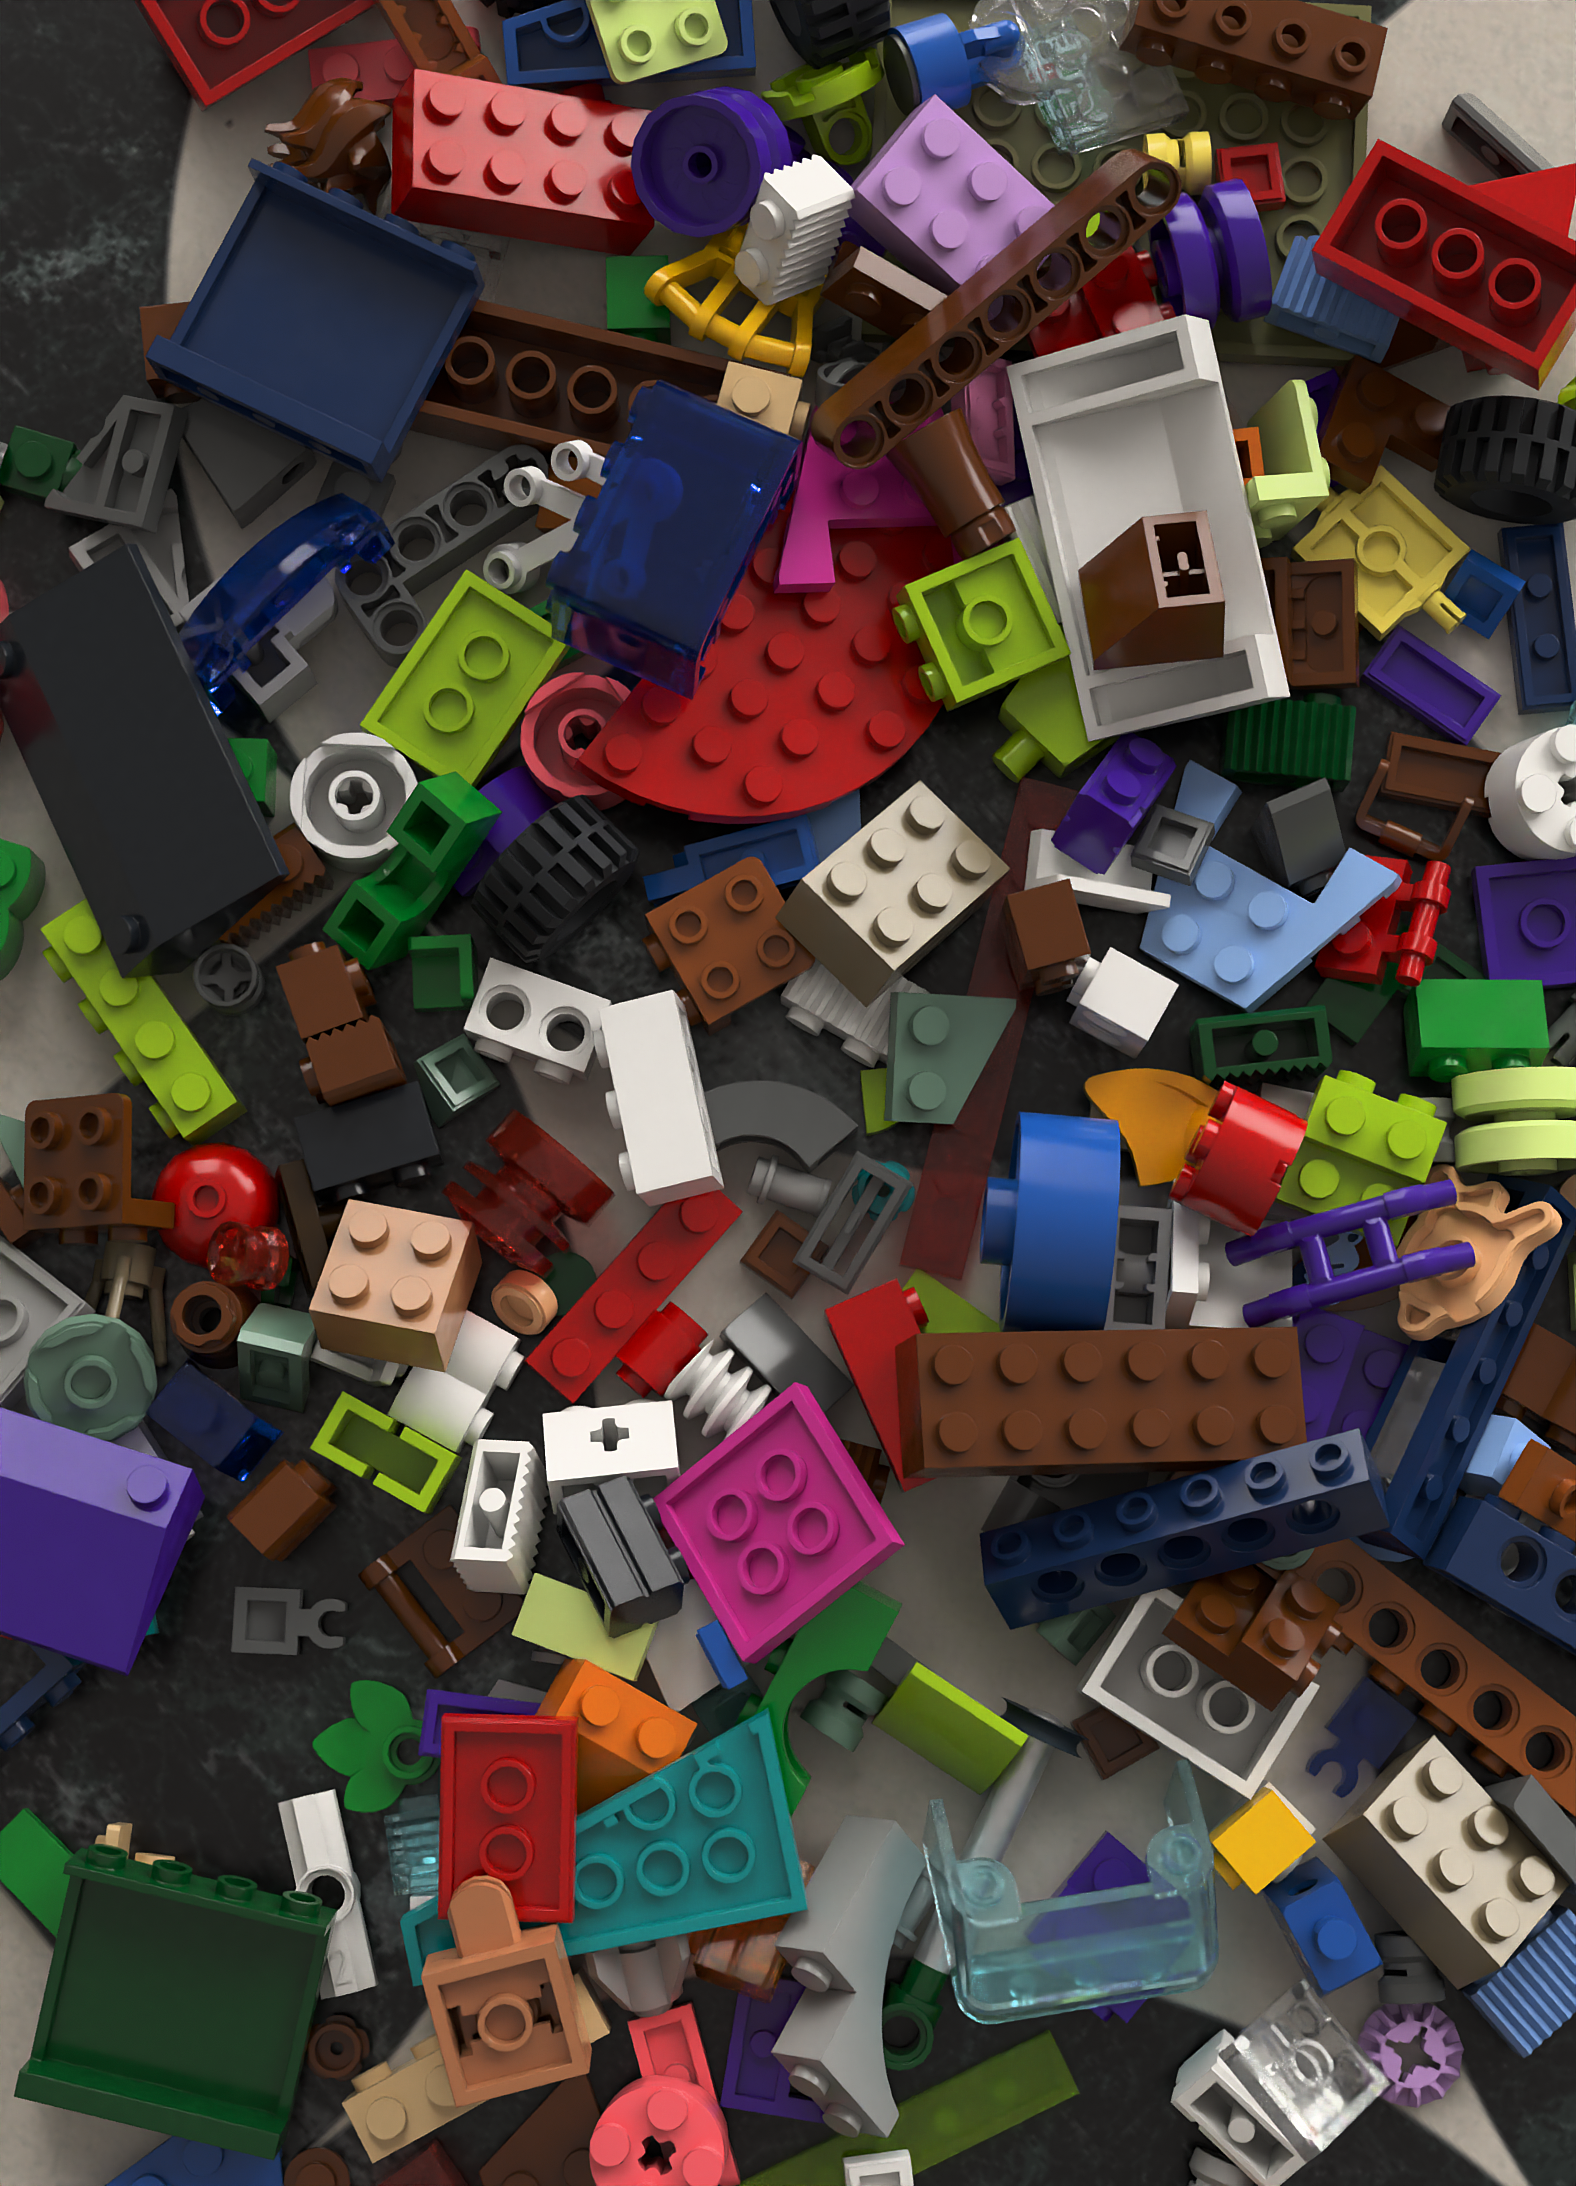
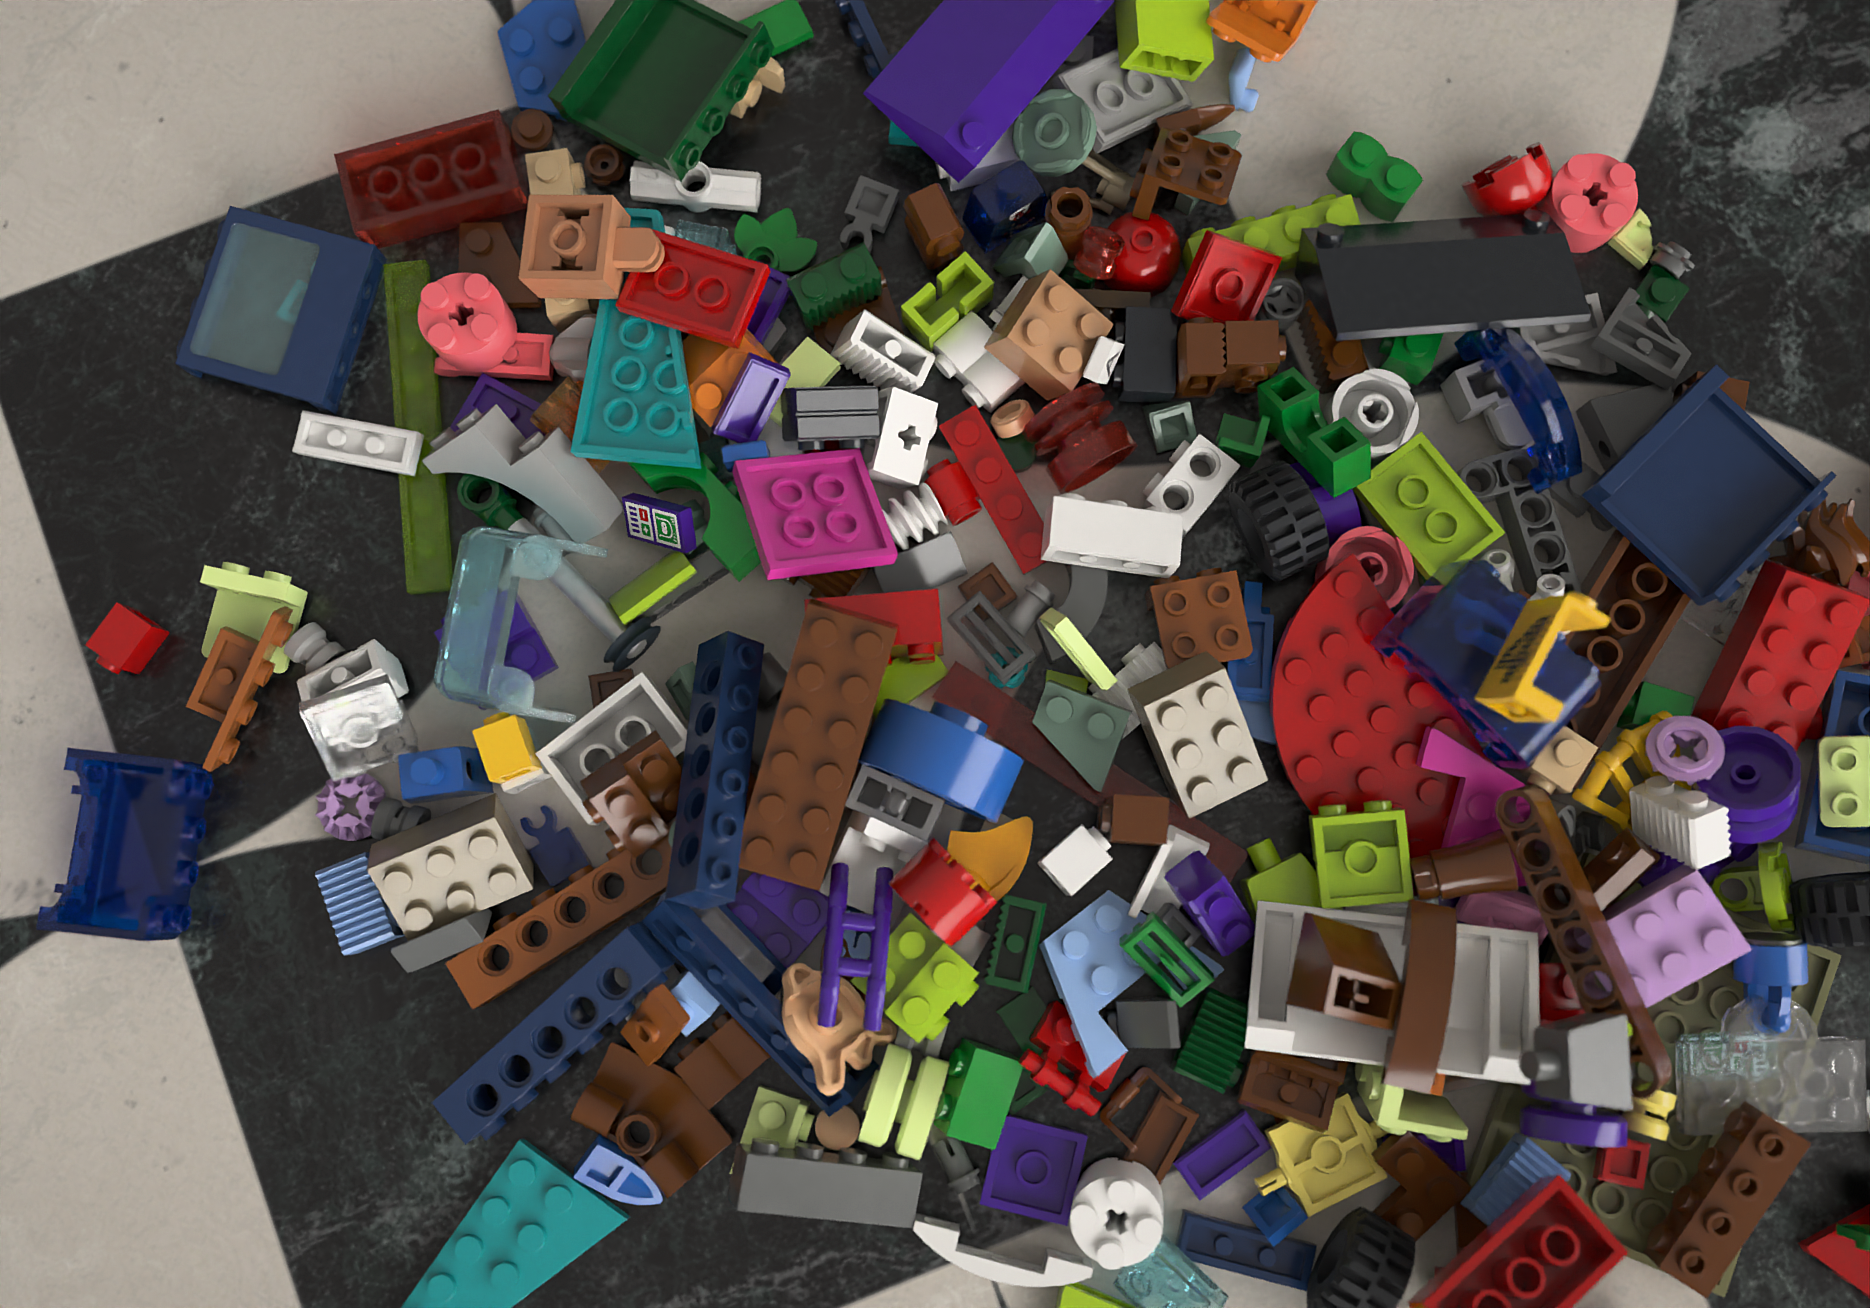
camera: 115 degrees right, 0 degrees up
(236, 1059) = (1226, 280): none -> red plate
(408, 1195) = (1103, 360): none -> white tile
(421, 1621) = (835, 285): none -> dark green brick
(643, 1673) = (751, 399): none -> tile
(665, 483) = (1509, 681): none -> yellow panel
(669, 254) = (1686, 732): none -> lavender gear
(835, 1092) = (1077, 649): none -> yellowish green tile
(856, 1751) = (659, 522): none -> tile
(1144, 483) = (1424, 998): none -> reddish brown slope
(1164, 263) = (1581, 1060): none -> torso
(1188, 828) = (1142, 932): none -> green tile

